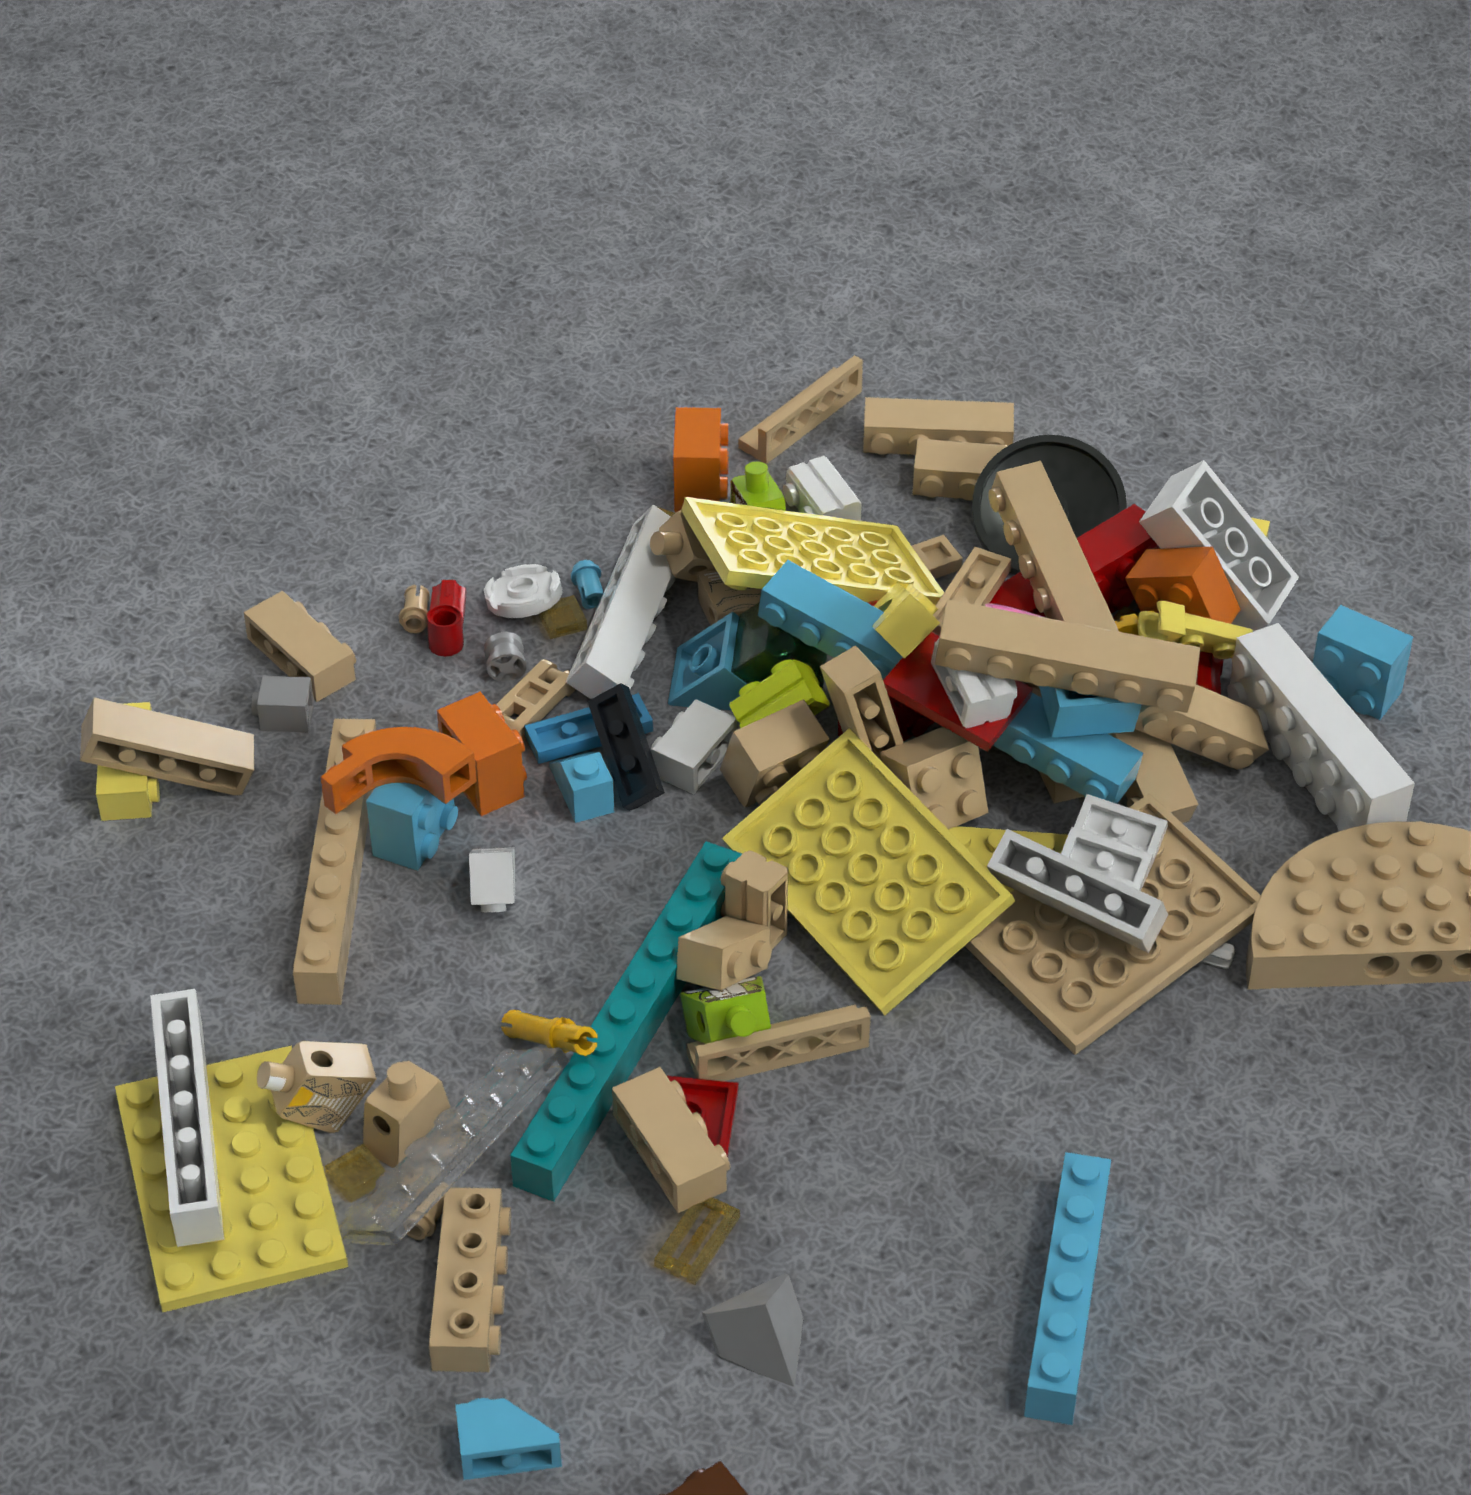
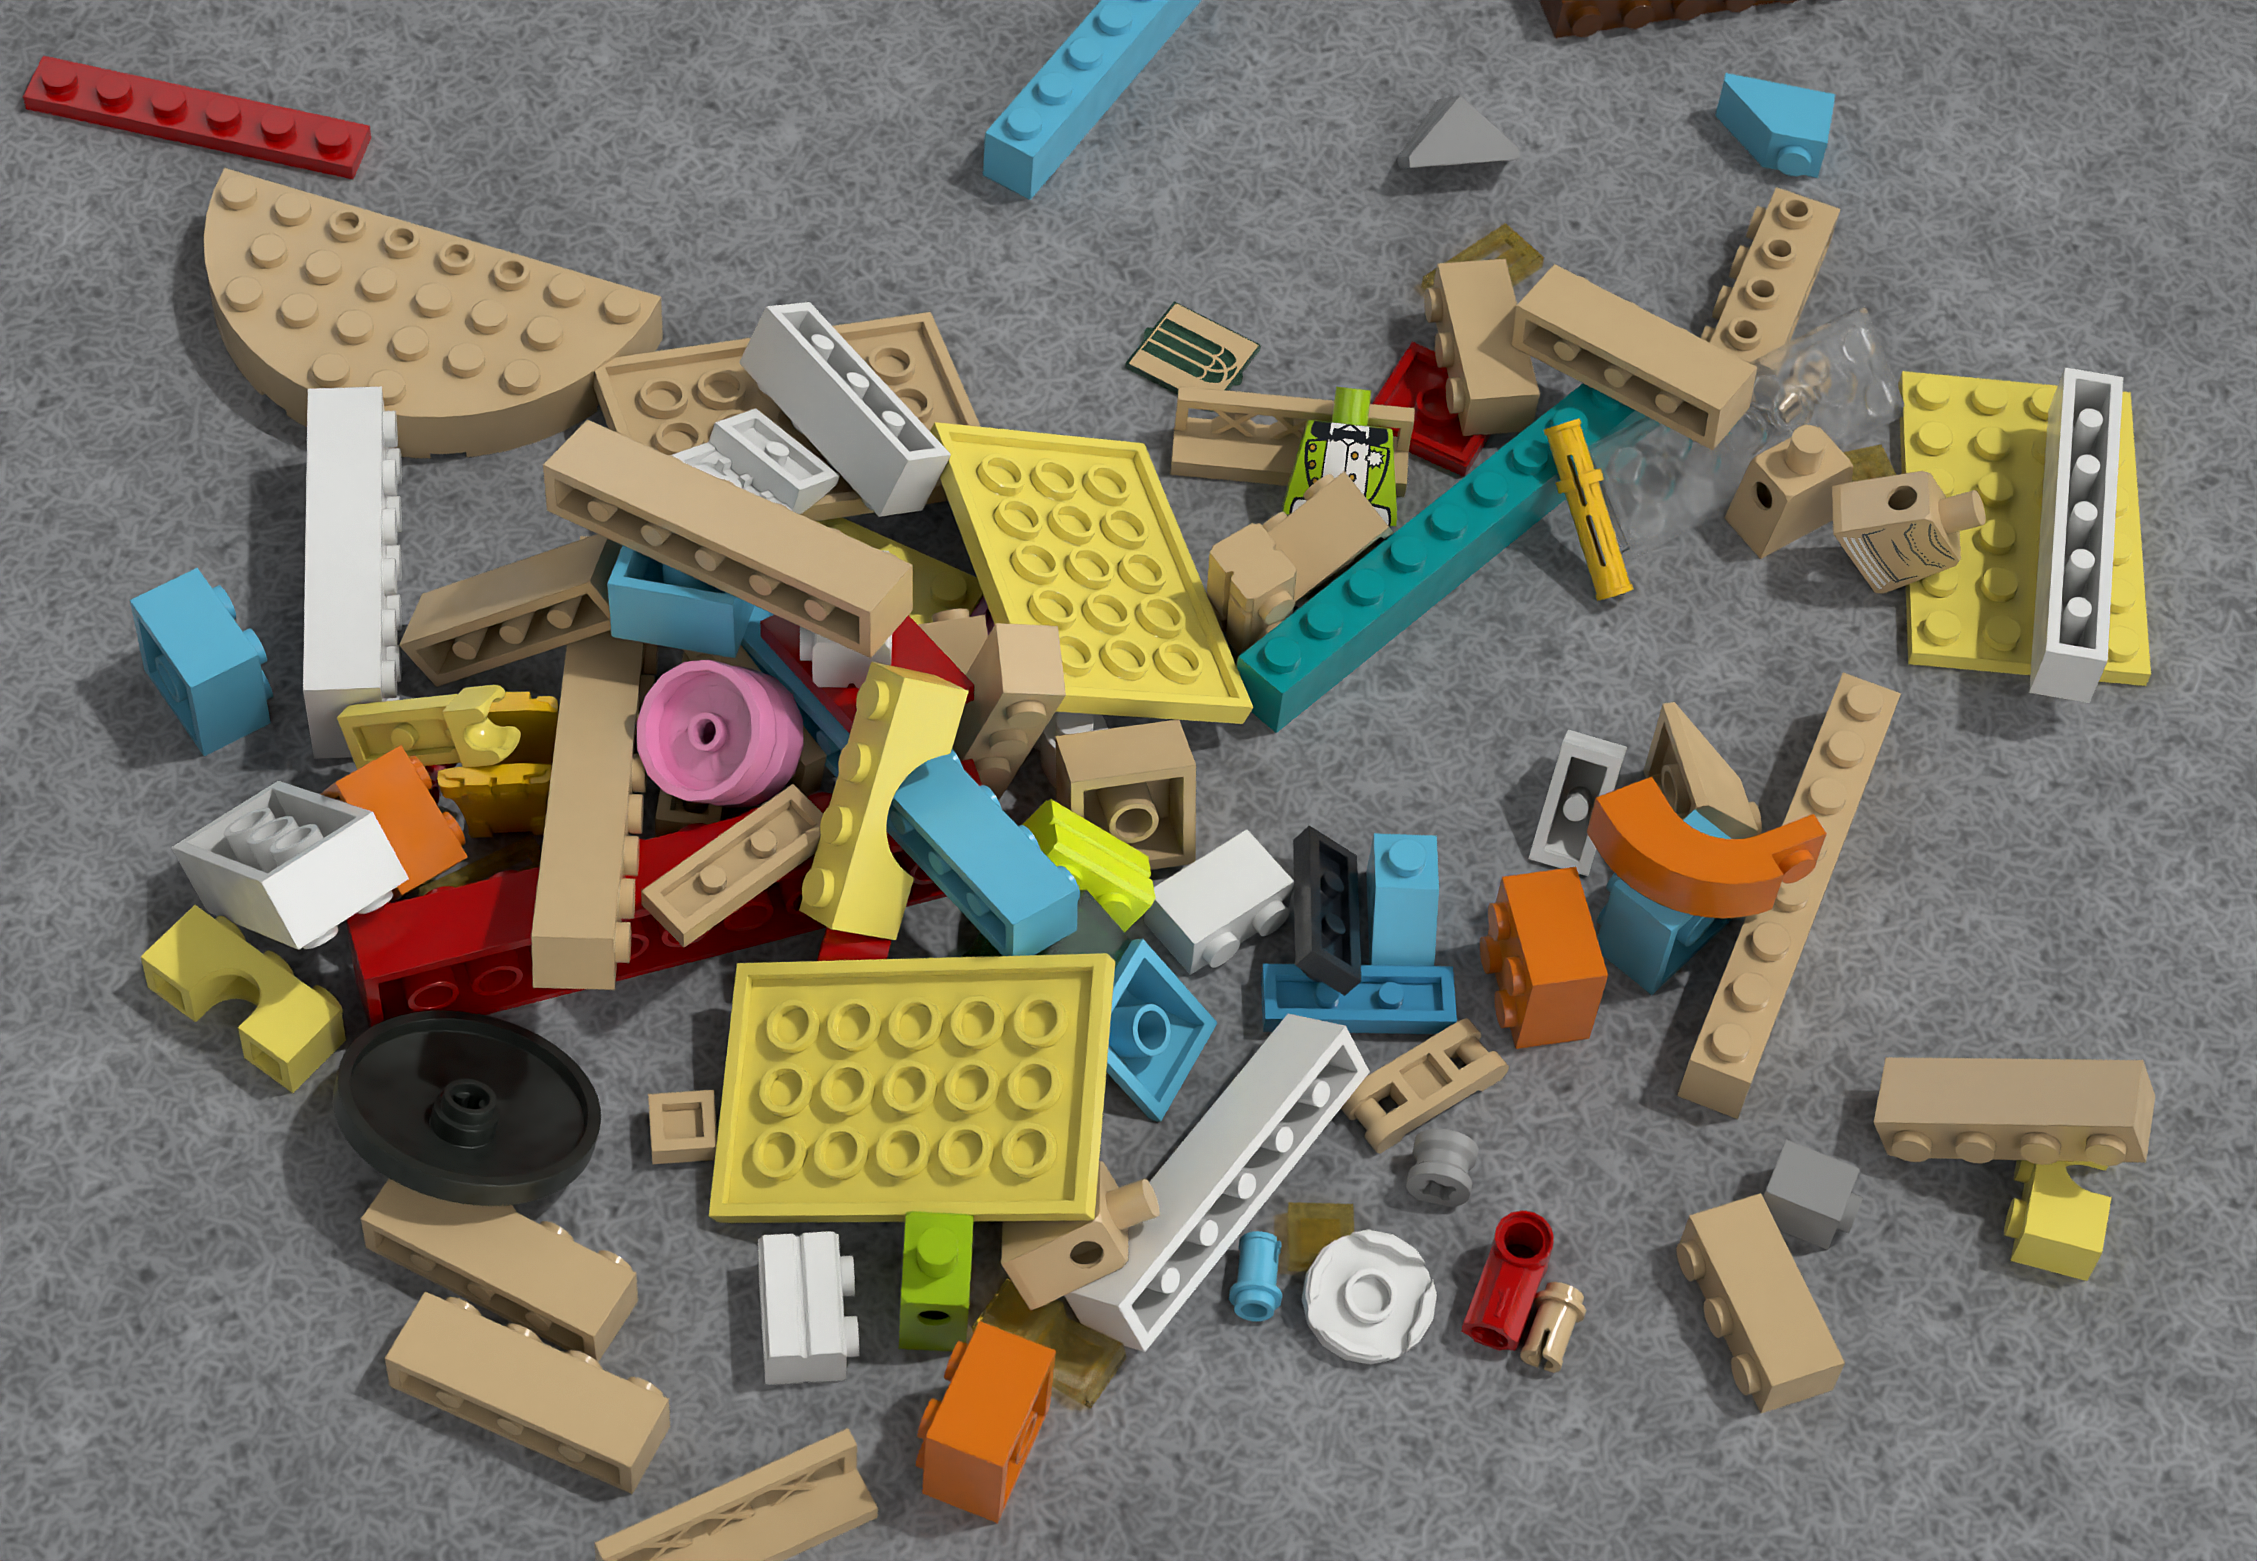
camera: 165 degrees left, 10 degrees up
(413, 881) = (1697, 776): none -> tan slope
(550, 1103) = (1633, 356): none -> tan brick
(880, 1100) = (1192, 352): none -> piece

